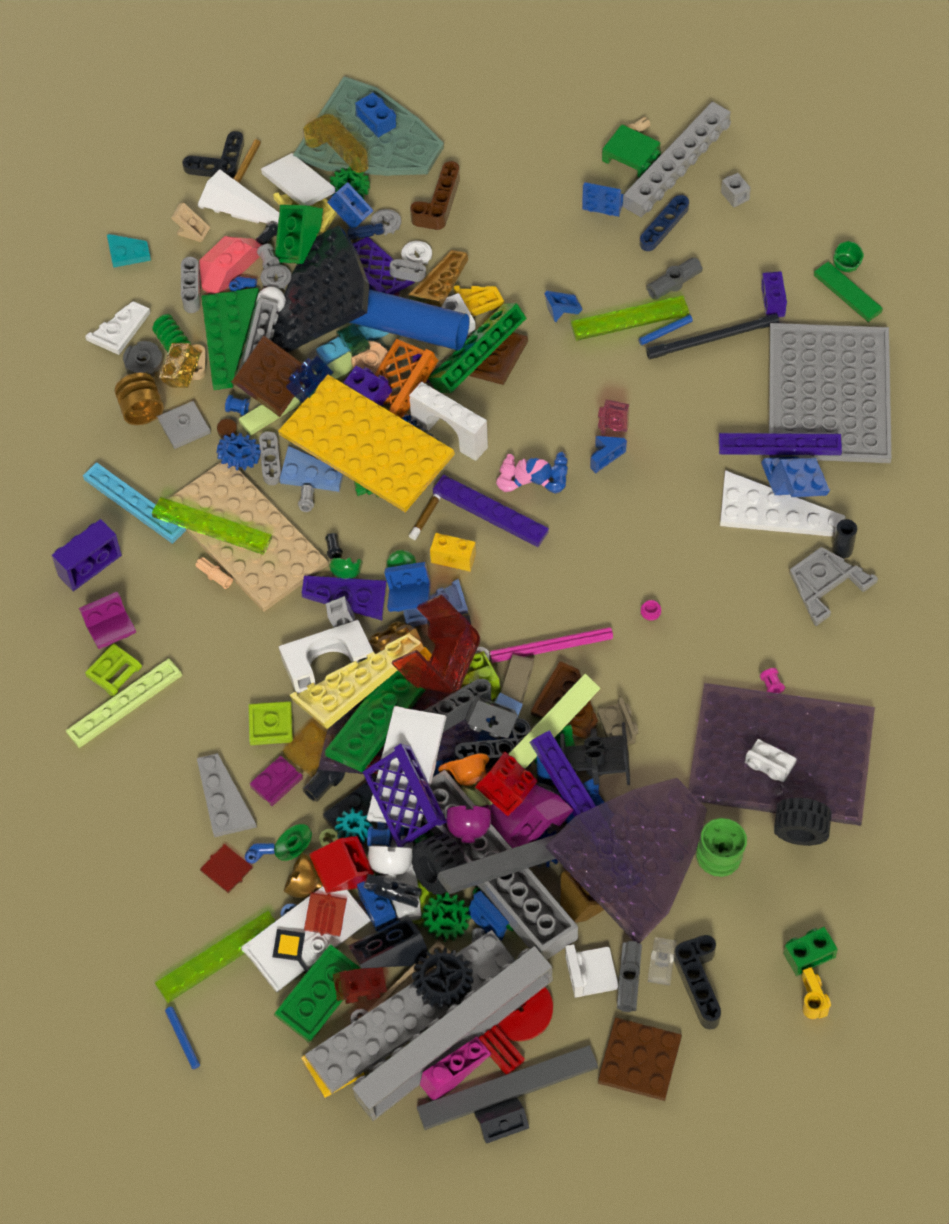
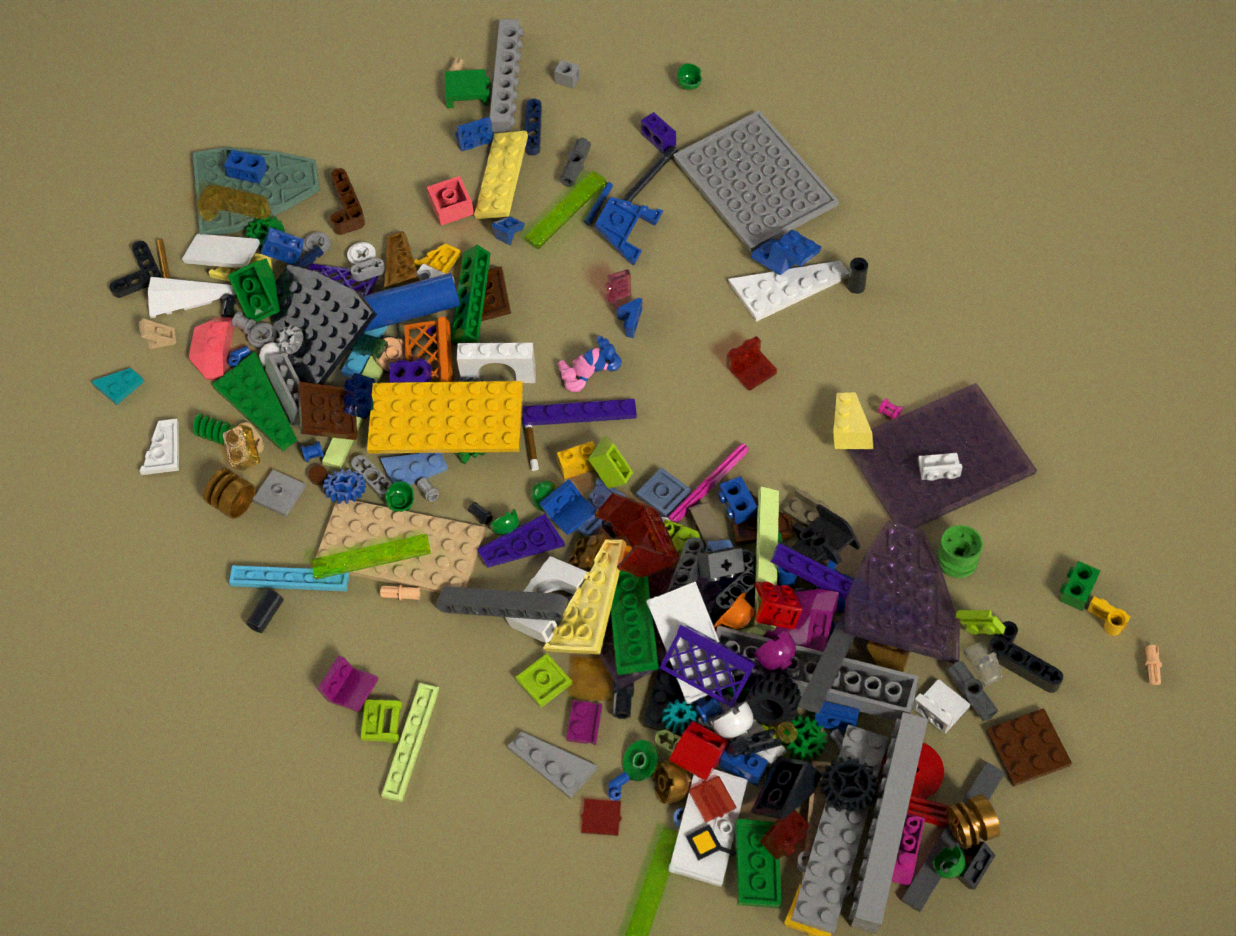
camera: 35 degrees left, 0 degrees up
(83, 519) = (264, 611): none -> black pin
(86, 555) = (286, 642): dark purple brick -> none
(143, 349) = (194, 458): dark grey plate -> none
(190, 285) = (190, 374): light grey beam -> none
(276, 489) = (399, 496): none -> green hair
(282, 633) = (502, 603): none -> dark grey beam
(293, 297) = (295, 340): none -> light grey gear
(340, 612) = (531, 559): light grey brick -> none
(424, 897) = (790, 727): none -> clear yellow bush
(473, 570) = (610, 464): none -> lime slope
(477, 1104) = (949, 862): none -> green hair
(504, 627) = (663, 492): none -> sand blue plate
(524, 1082) = (973, 821): none -> pearl gold wheel
(530, 249) = (450, 200): none -> coral brick
(562, 674) = (741, 499): none -> blue brick
(597, 251) = (501, 175): none -> light yellow plate
(650, 610) = (759, 412): dark pink plate -> none
(665, 356) = (618, 221): none -> blue wing
(678, 560) = (750, 364): none -> clear red bracket
(682, 920) = (980, 622): none -> lime plate
(718, 669) = (850, 424): none -> light yellow wedge
(779, 444) = (755, 235): dark purple plate -> none
(802, 821) = (1001, 494): black tyre -> none
(817, 1065) = (1153, 664): none -> light nougat axle
(821, 574) = (858, 312): light grey wing -> none
(848, 291) = (707, 102): green tile -> none

